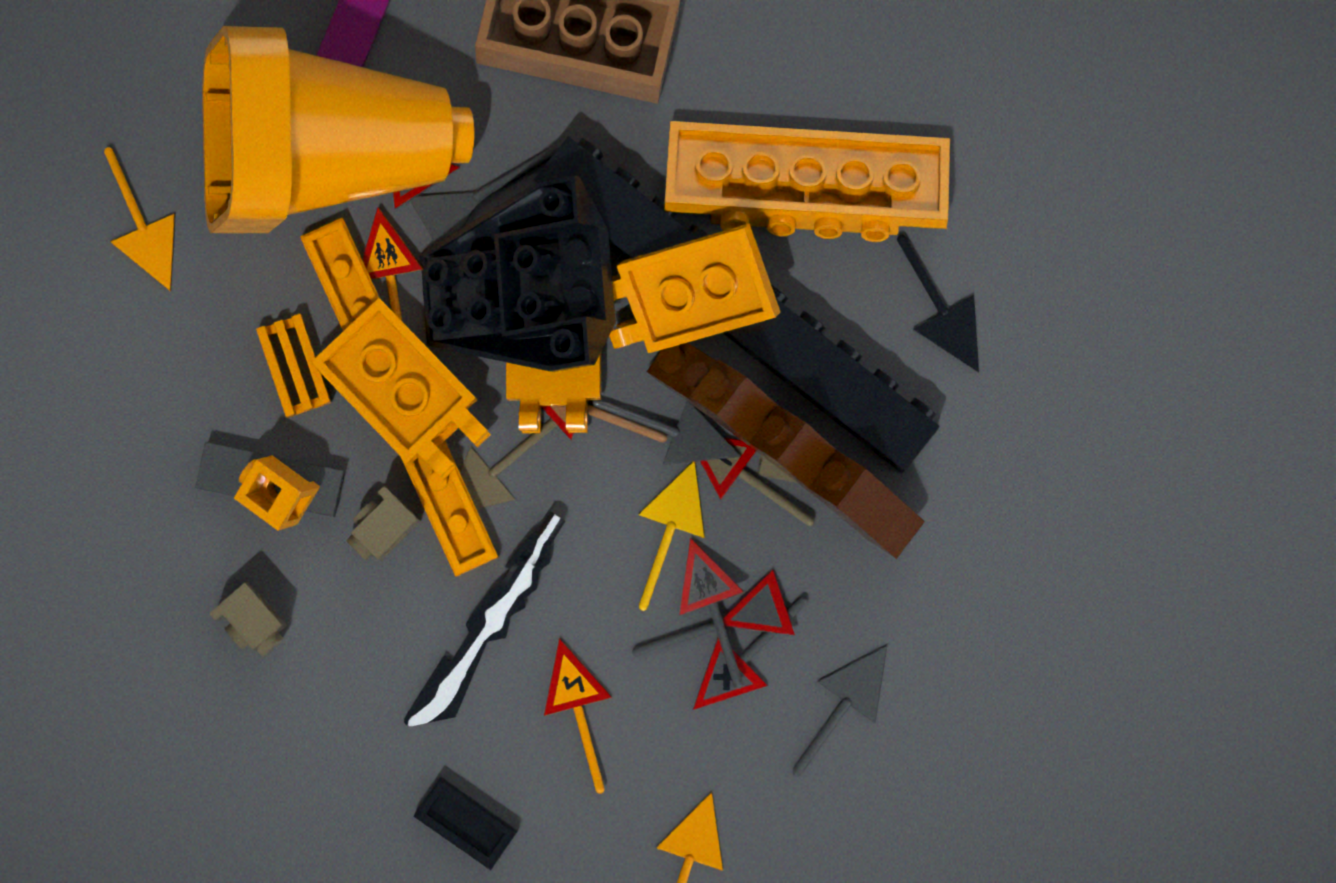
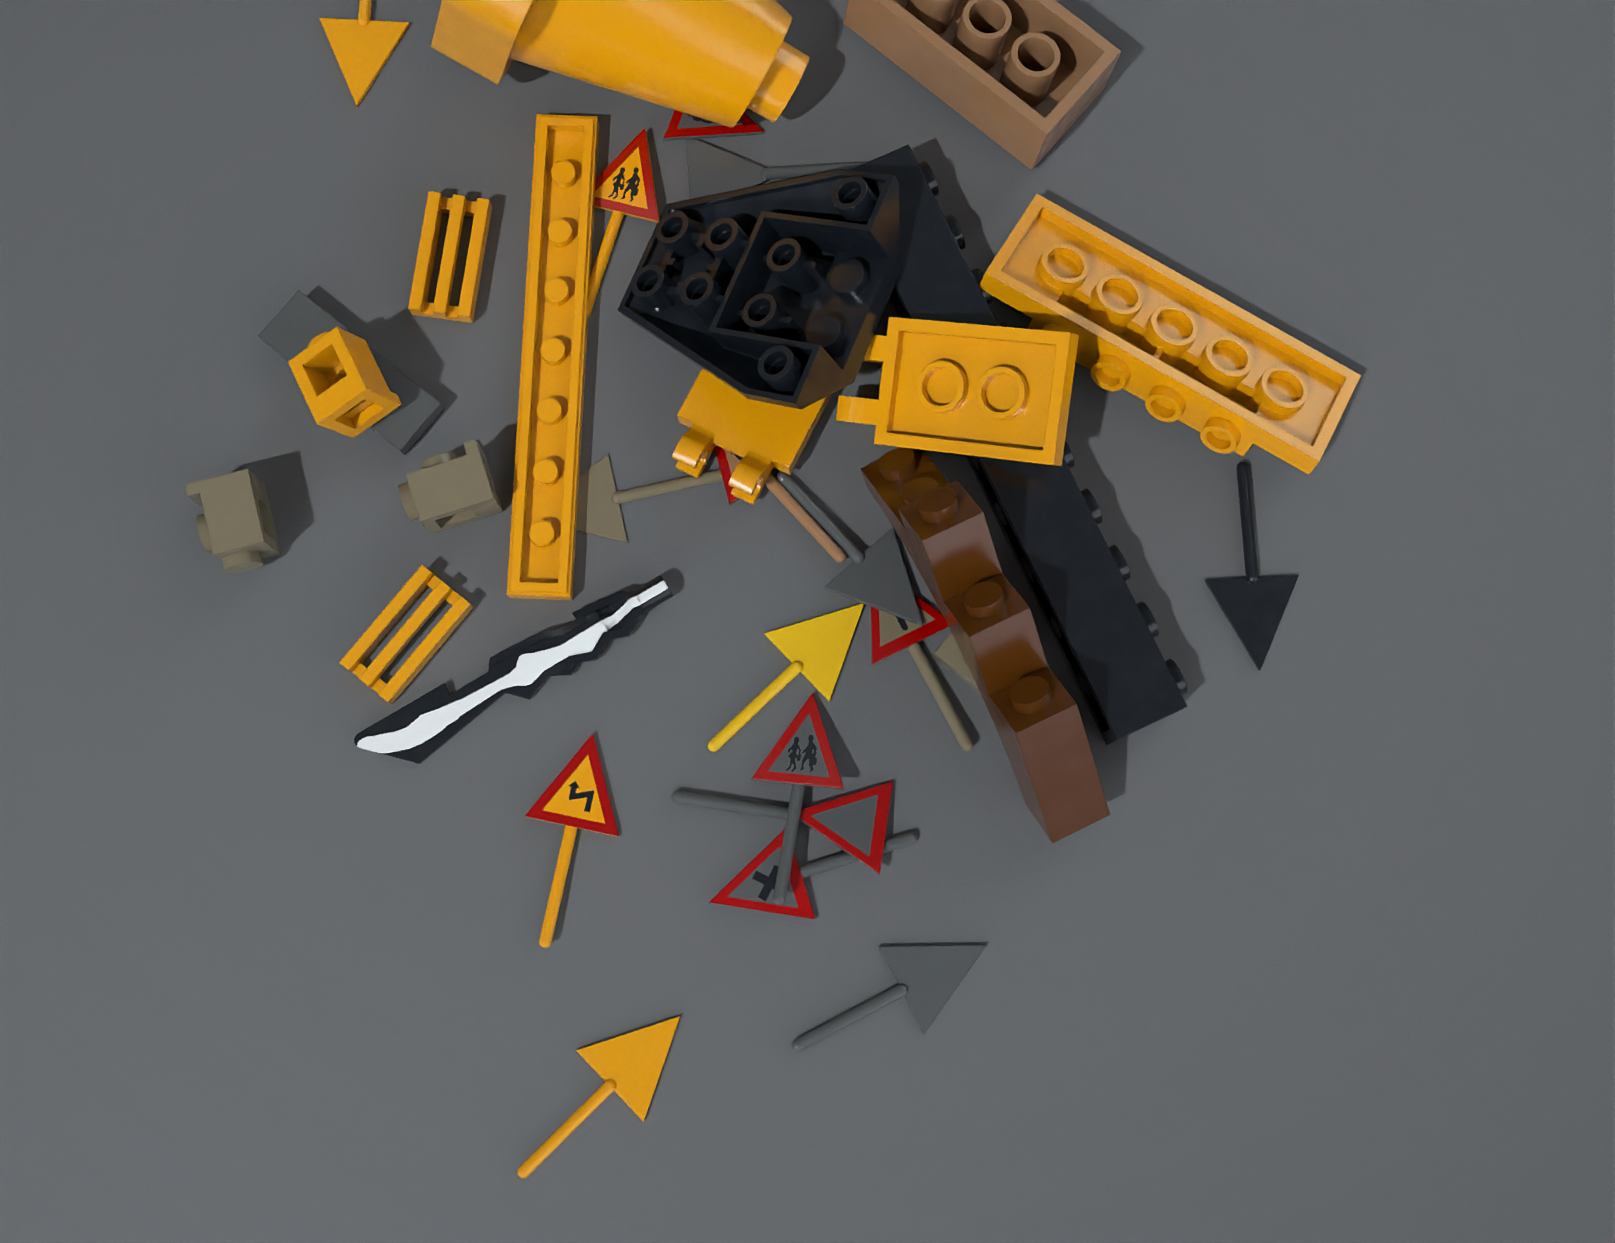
camera: 25 degrees right, 5 degrees down
(394, 675) = (387, 620): none -> light orange tile
(400, 387) = (558, 338): light orange tile -> none
(465, 823) = (361, 899): black tile -> none

